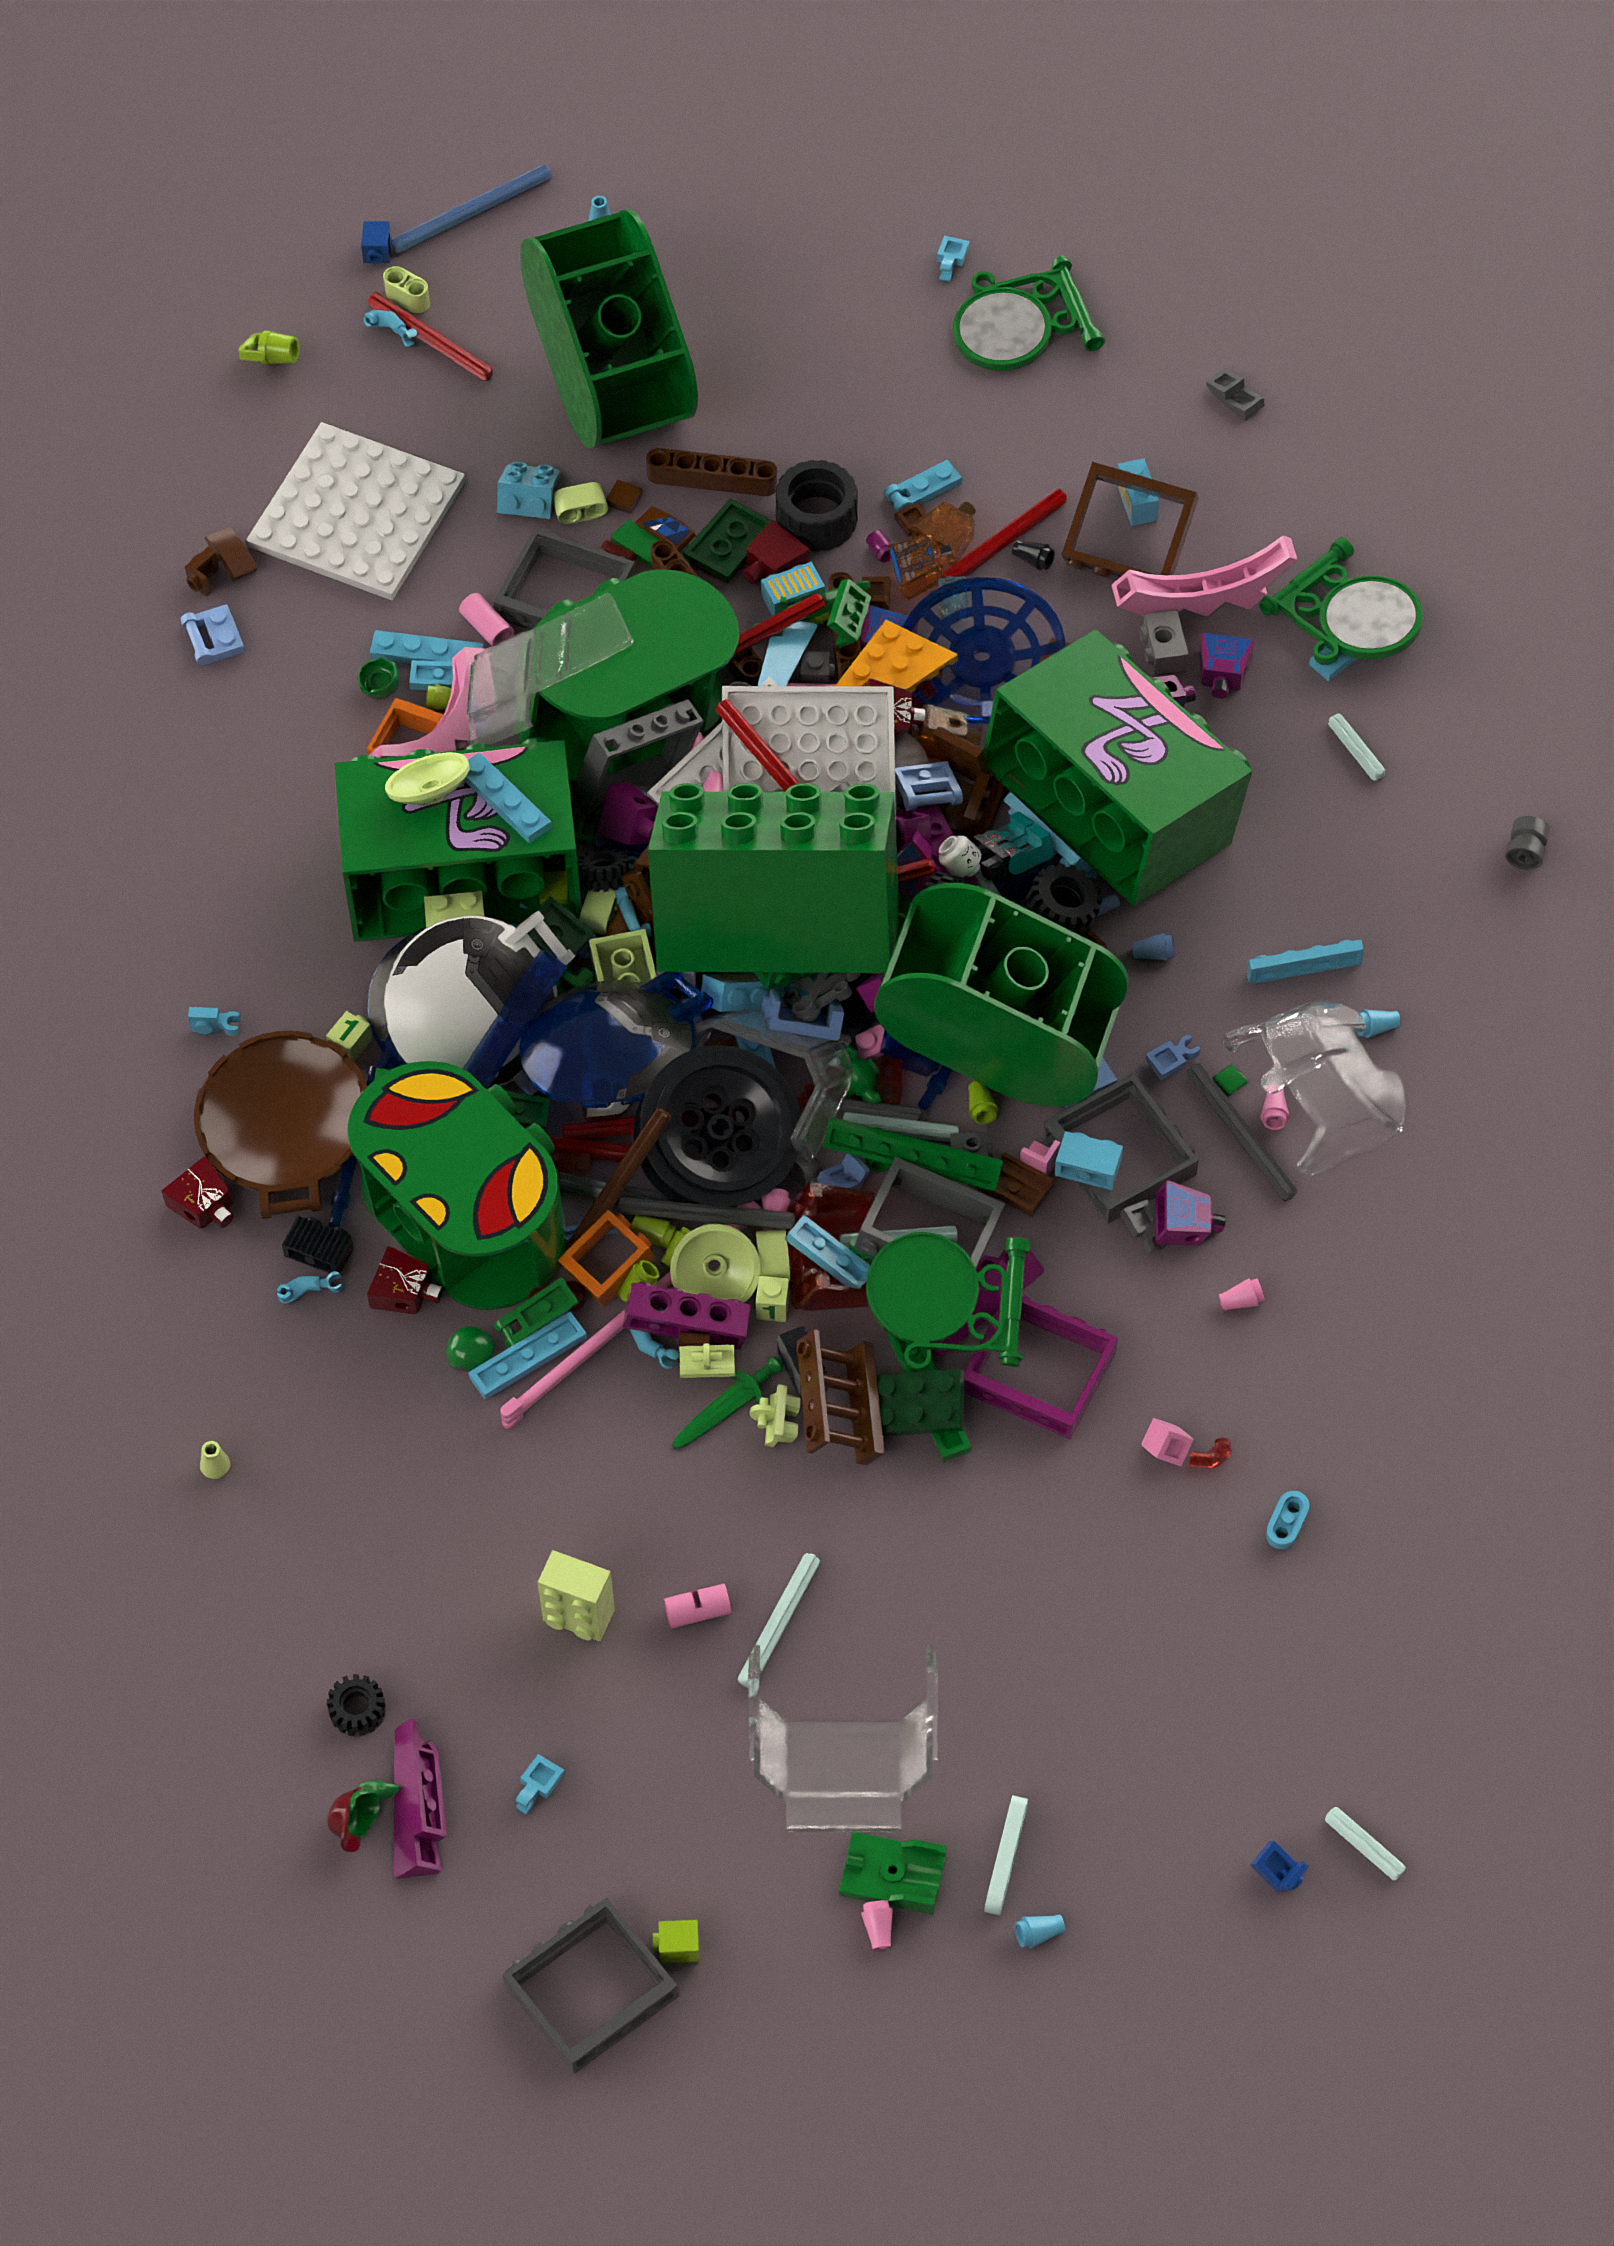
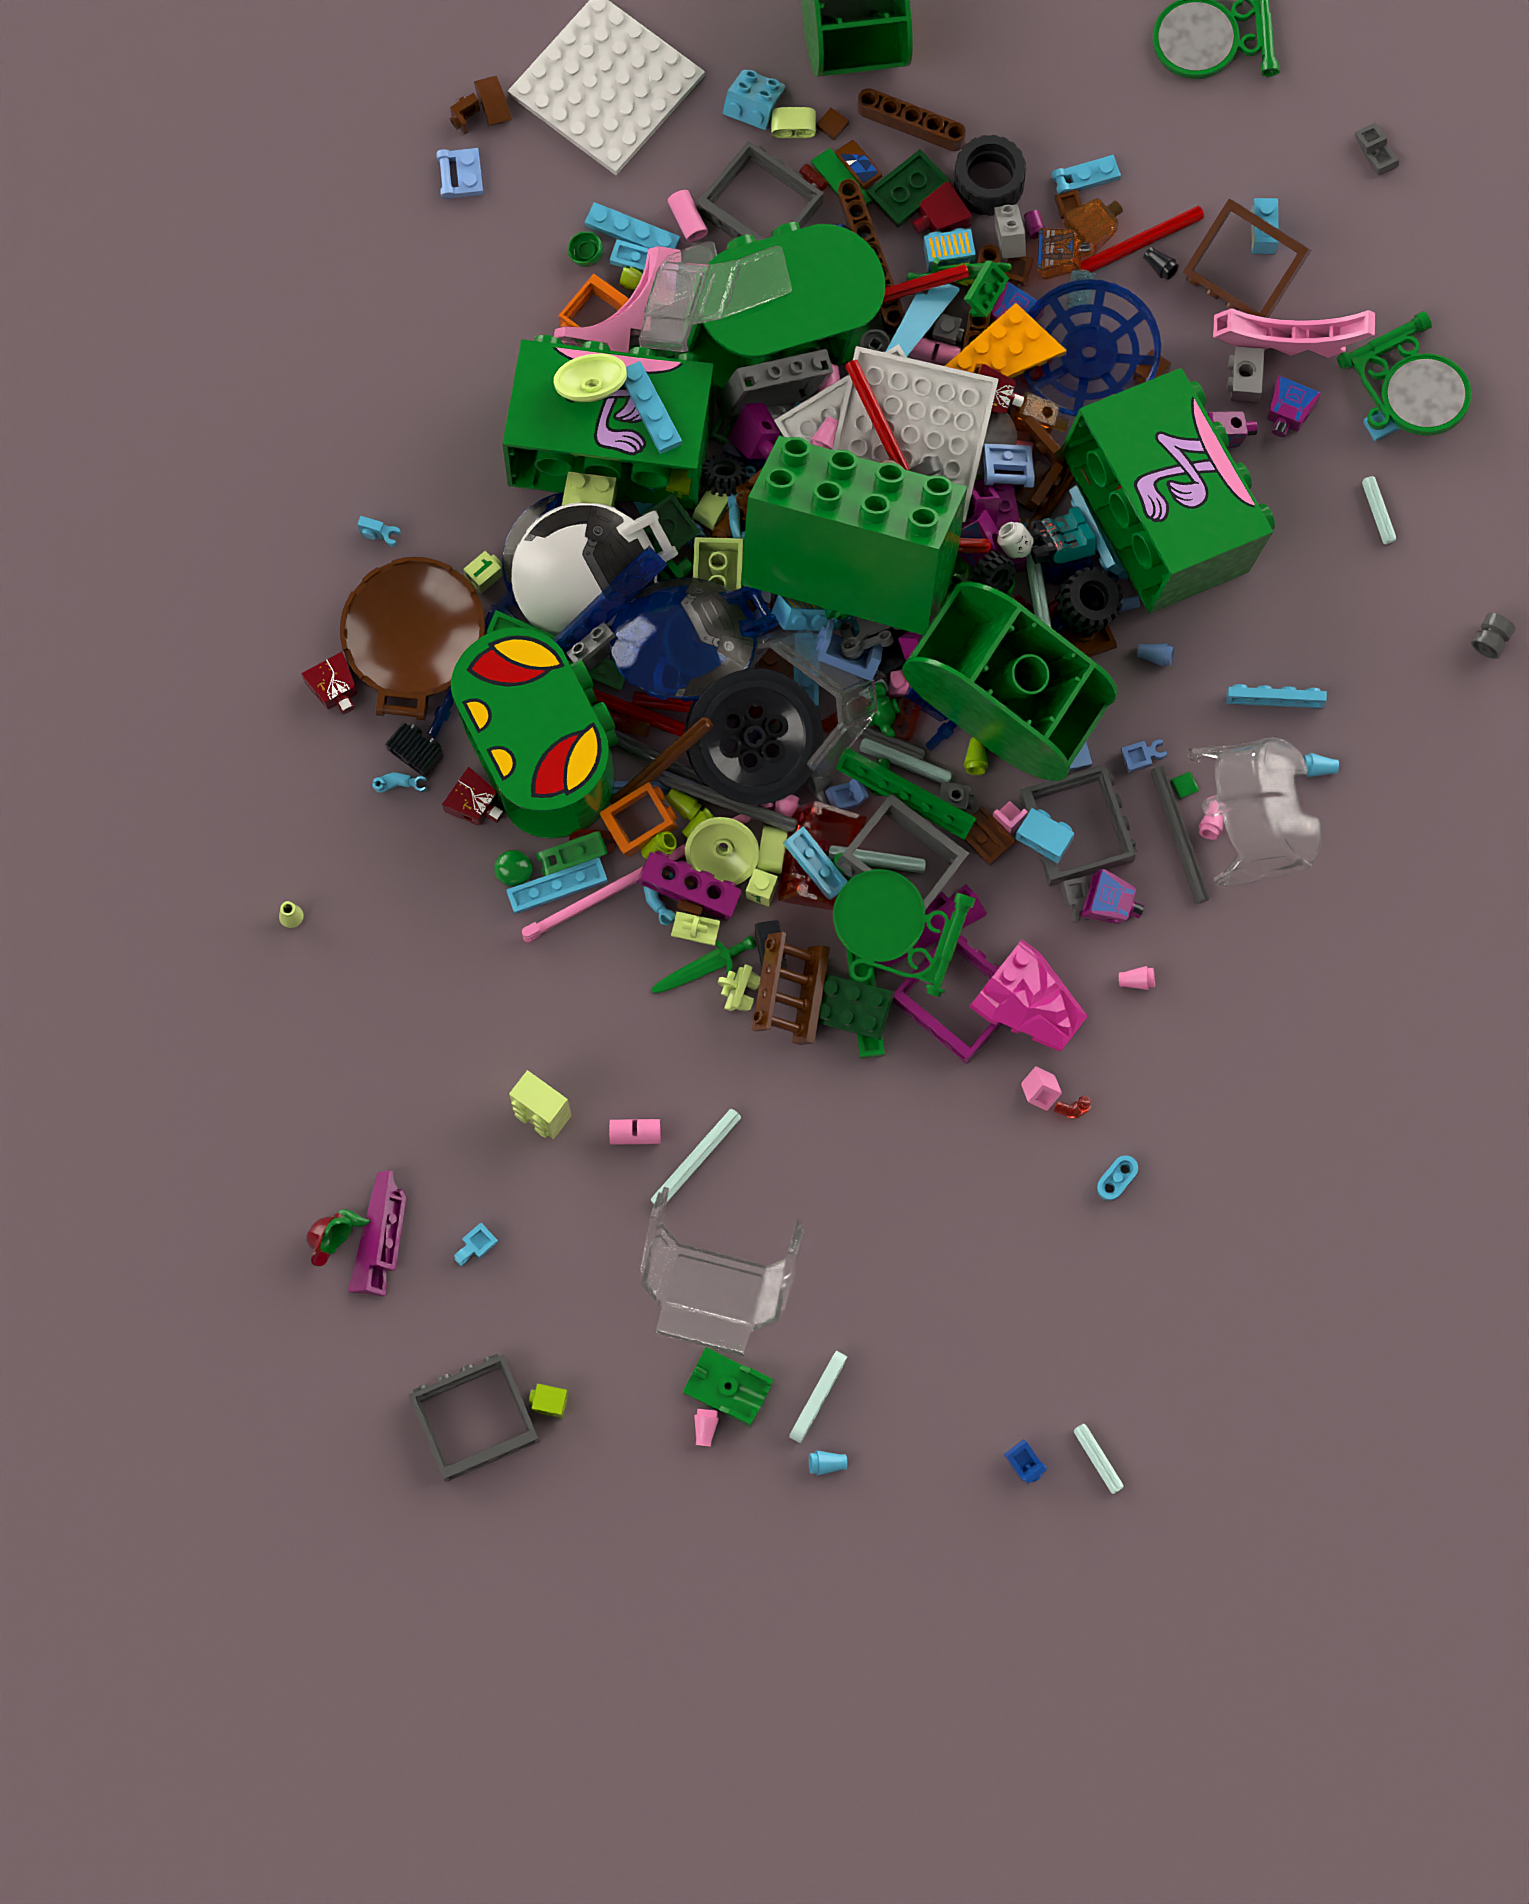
camera: 15 degrees right, 15 degrees up
(351, 1688) = (352, 1160): black tyre -> none
(507, 1072) = (593, 647): none -> dark grey bracket
(856, 554) = (1010, 231): none -> light grey brick
(1125, 1343) = (1030, 999): none -> dark pink wedge

